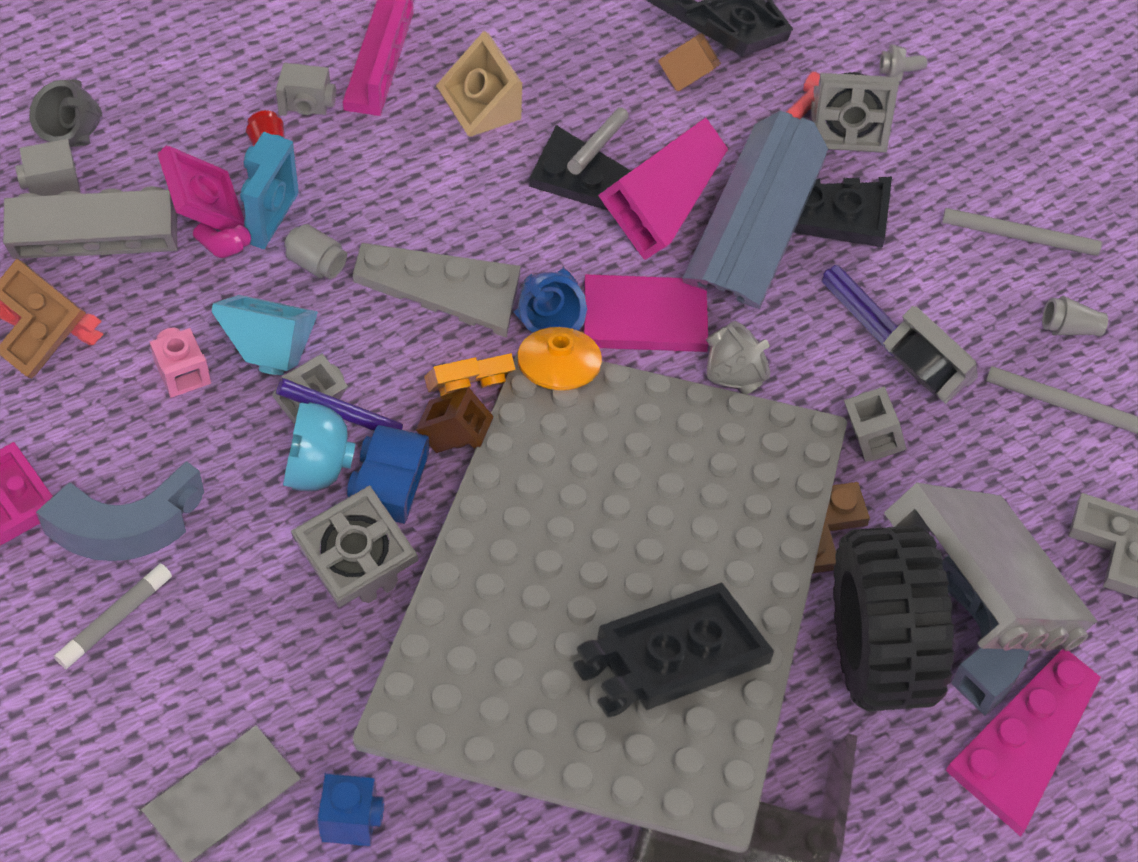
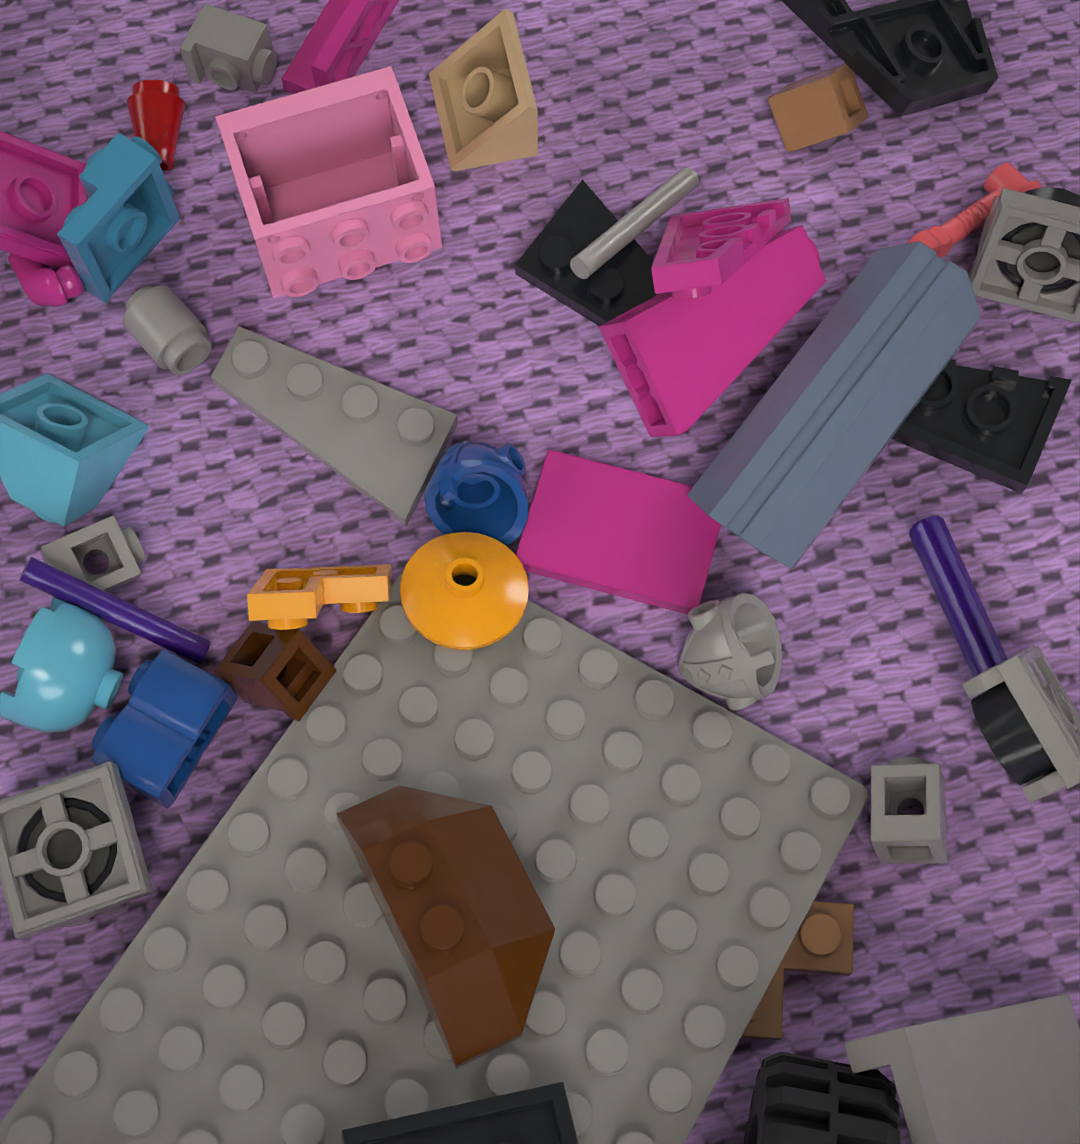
camera: 20 degrees right, 15 degrees up
(401, 147) = (332, 182): none -> bright pink container
(621, 514) = (455, 911): none -> reddish brown wedge
(656, 135) = (713, 244): none -> dark pink wing

